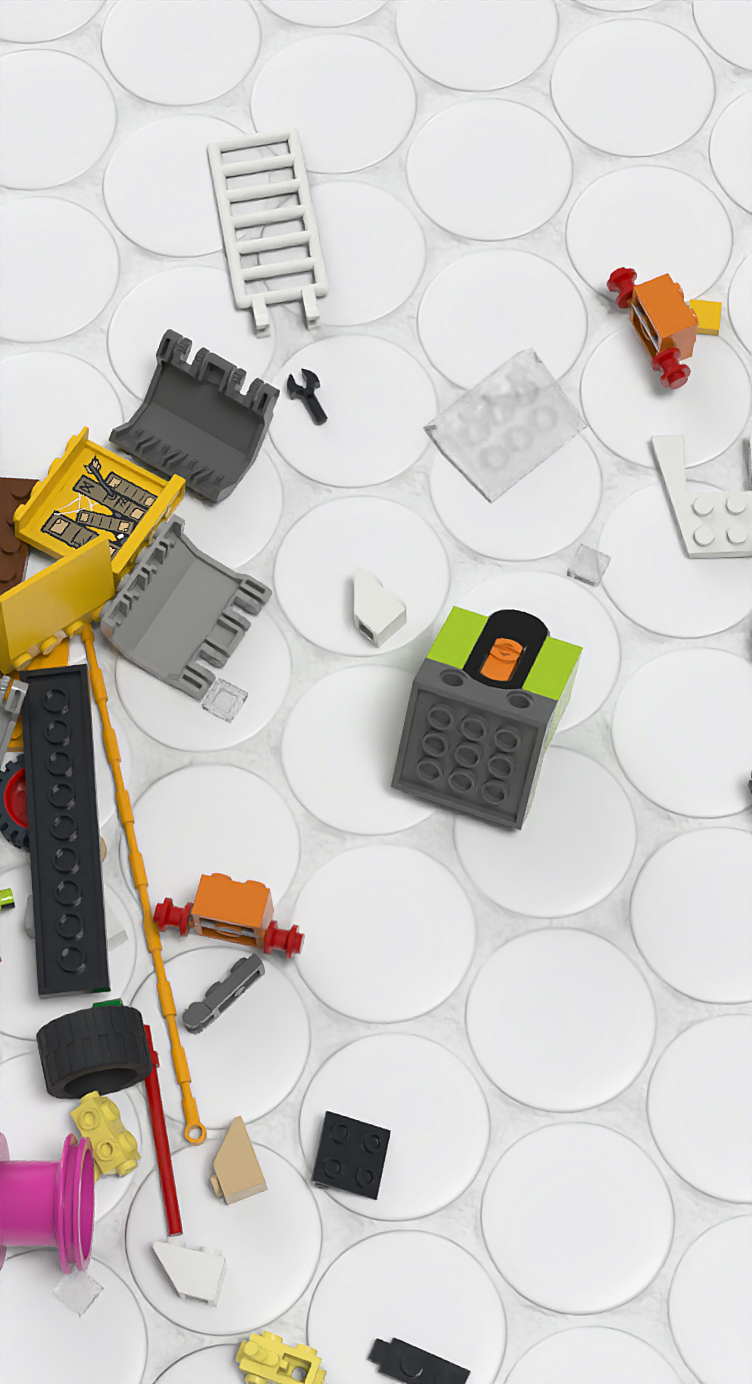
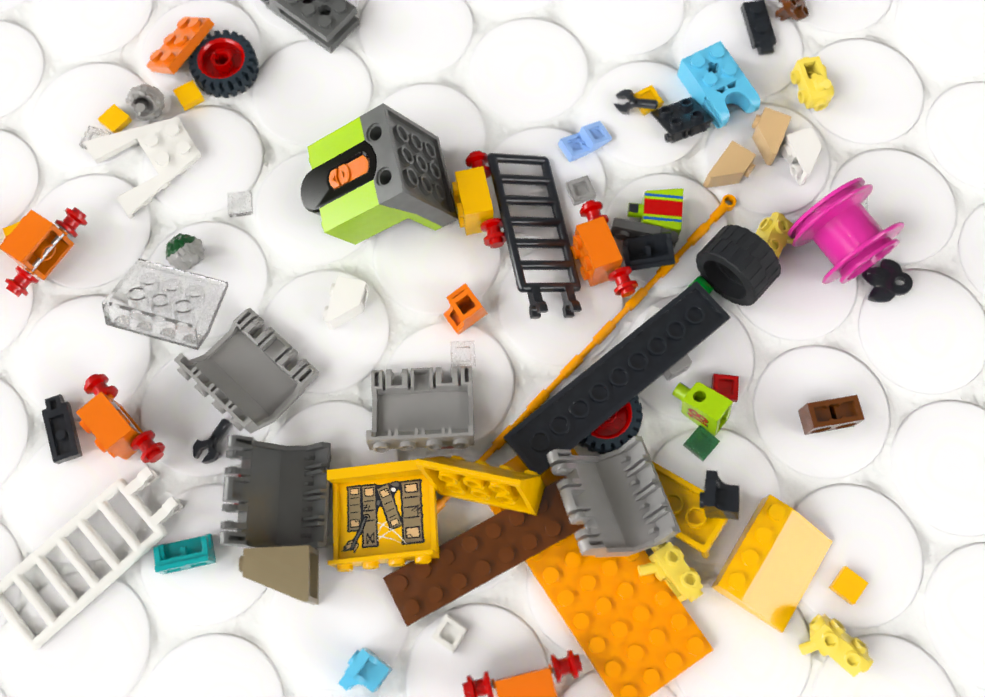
camera: 125 degrees left, 5 degrees up
(107, 385) = (284, 569): none -> dark tan slope
(162, 1144) = (757, 206): red bar -> none
(191, 974) = (649, 251): none -> black hinge
(203, 311) = (184, 554): none -> teal hinge
(237, 1032) = (660, 209): none -> torso
(249, 1252) = (769, 133): none -> tan slope
(275, 730) = (463, 309): none -> orange brick
(338, 964) = (580, 190): none -> light grey tile
(339, 828) = (534, 290): none -> black bar
(353, 1235) = (716, 81): none -> medium azure brick
(355, 455) = (249, 373): none -> light grey hinge
(385, 305) = (113, 425): none -> orange brick
(395, 815) = (474, 201): none -> yellow brick
(402, 1014) = (586, 141): none -> light blue slope
(408, 1136) = (648, 93): none -> yellow tile
(414, 1106) = (633, 102): none -> black bar
(425, 259) = (61, 430): none -> black hinge
(553, 468) = (184, 251): none -> light grey piece

